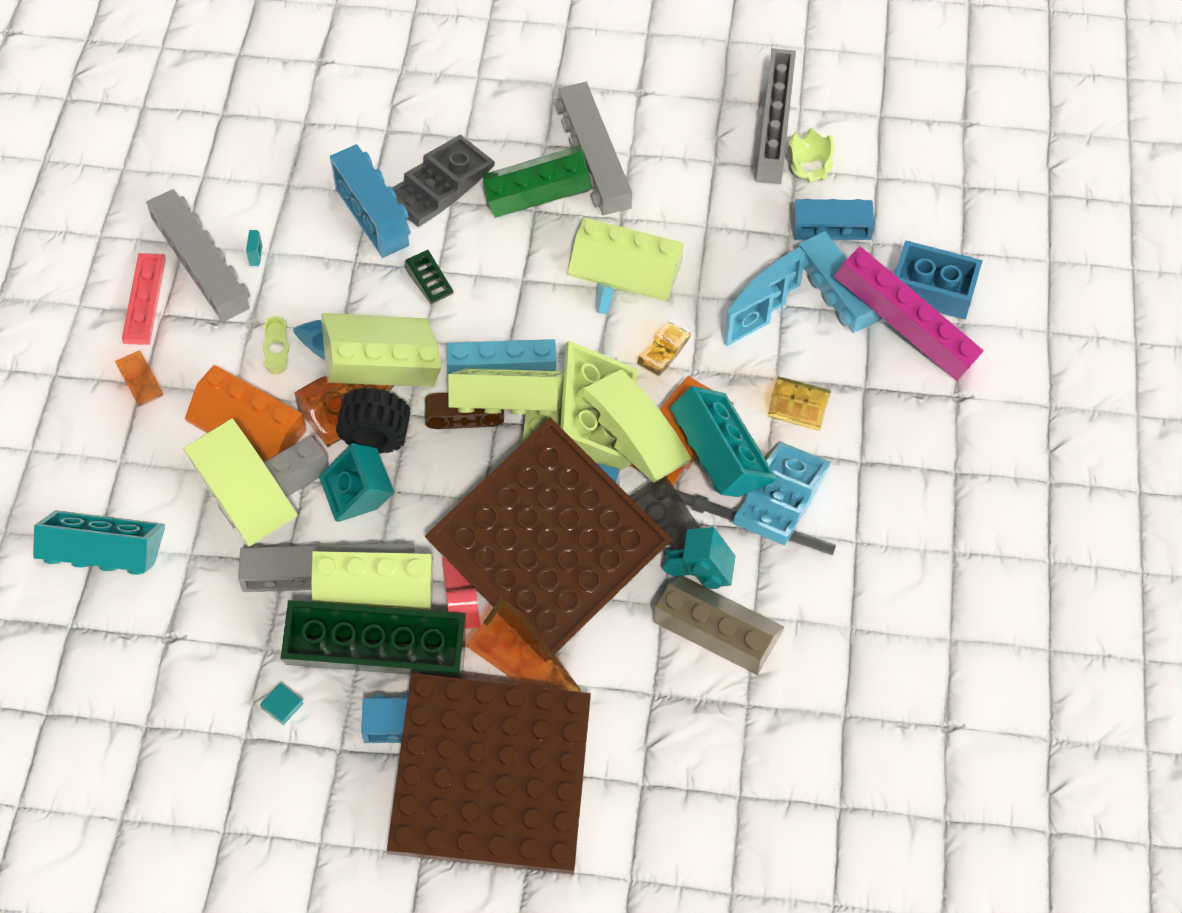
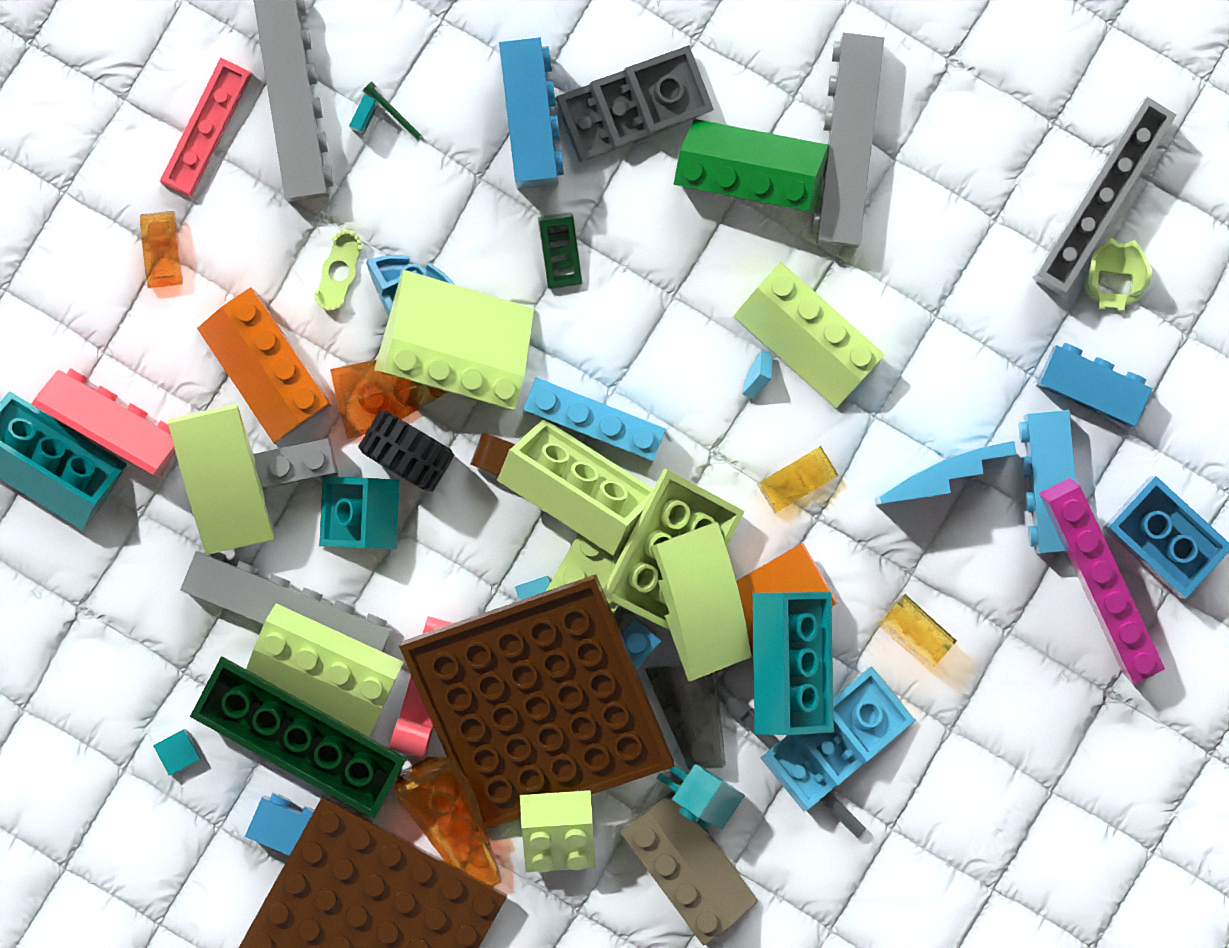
camera: 20 degrees right, 30 degrees up
(139, 496) = (106, 421): none -> coral slope
(281, 246) = (370, 89): none -> dark green piece
(607, 626) = (557, 831): none -> yellowish green brick

